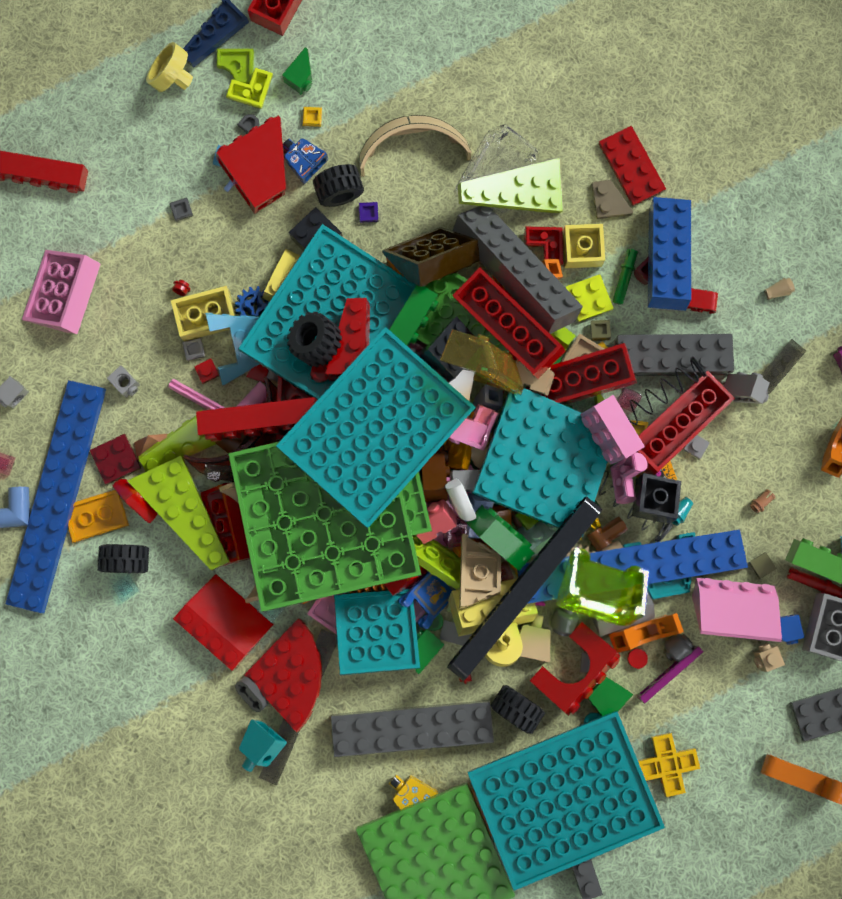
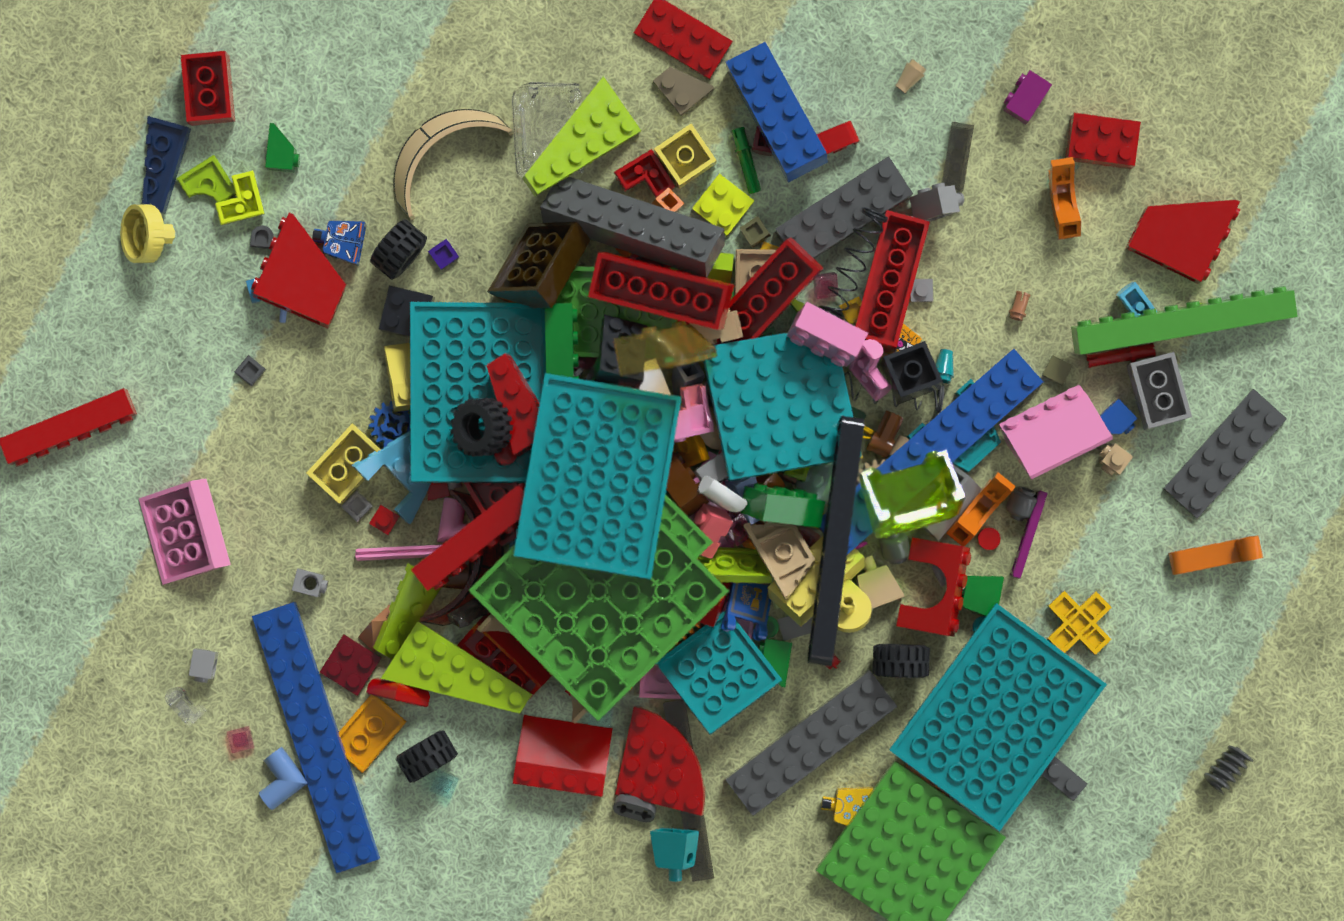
camera: 30 degrees left, 5 degrees up
(181, 287) = (303, 451): red plate -> none
(312, 116) = (321, 189): yellow tile -> none

